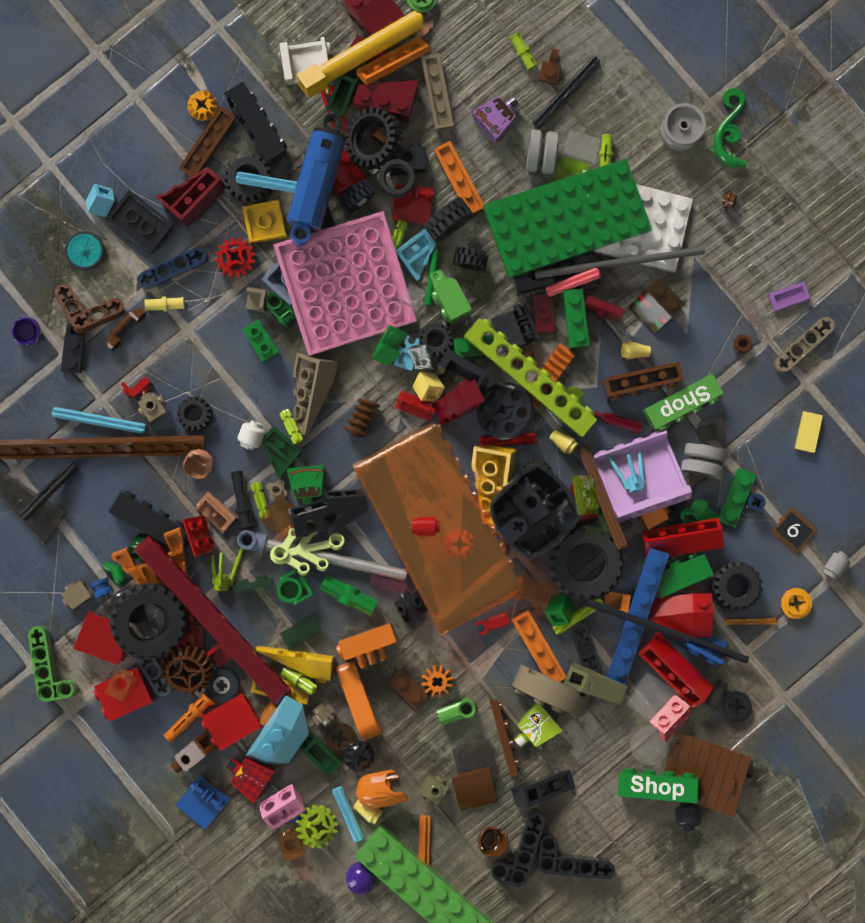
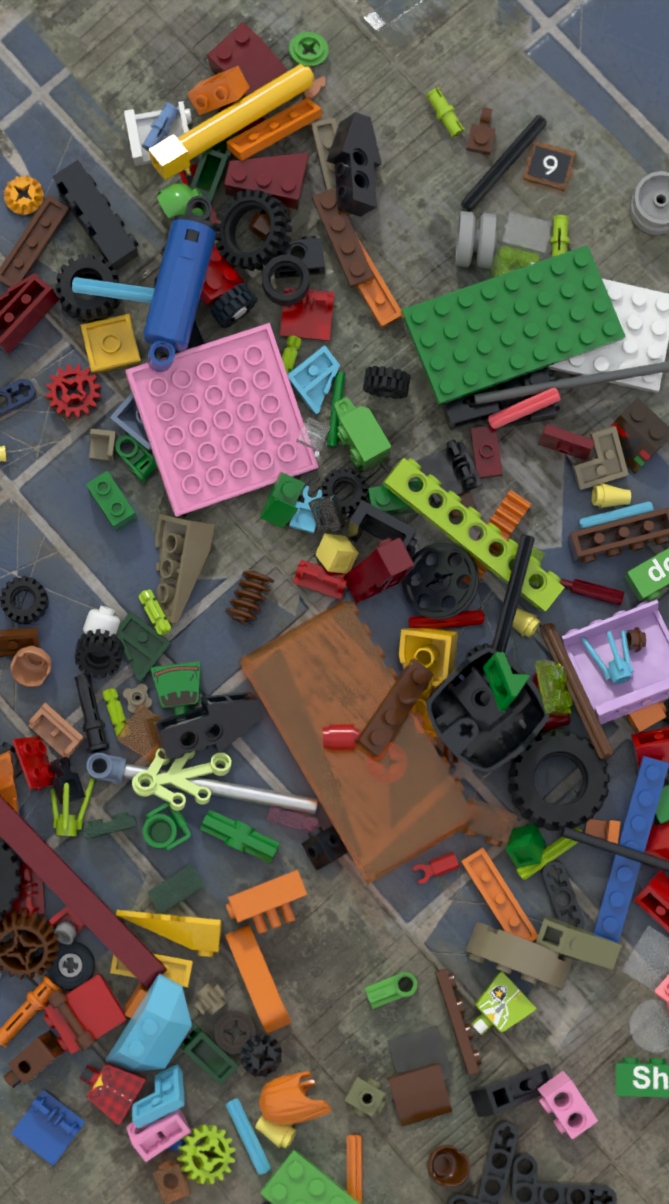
camera: 10 degrees left, 5 degrees down
(219, 661) = (66, 932): none -> light grey hinge
(221, 546) = (64, 776): none -> black plate
(229, 740) = (58, 1000): none -> reddish brown bar
(248, 464) = (103, 643): none -> black tyre
(288, 786) = (166, 1099): none -> medium azure plate
(299, 680) = (176, 953): lime axle -> none
(307, 56) = (161, 126): none -> medium blue pin
(315, 113) = (175, 199): none -> bright green cylinder
(351, 29) = (218, 90): none -> orange brick
(408, 688) = (324, 960): reddish brown plate -> none
(436, 688) = (364, 939): orange gear -> none
(441, 146) = (342, 238): none -> reddish brown plate
(448, 219) = (355, 331): black tyre -> none
(453, 85) = (355, 158): none -> black brick
(466, 506) = (394, 708): none -> reddish brown plate
(496, 117) = (413, 198): medium lavender torso -> none
(547, 491) = (503, 683): none -> green slope
(558, 423) = (513, 593): none -> black axle
(575, 319) = (529, 458): green brick -> none
(581, 801) = (569, 1103): none -> bright pink brick
(600, 95) = (549, 165): none -> piece
(633, 327) = (607, 464): none -> dark tan plate
(638, 365) = (615, 515): none -> medium azure axle
(649, 459) = (636, 639): none -> reddish brown plate

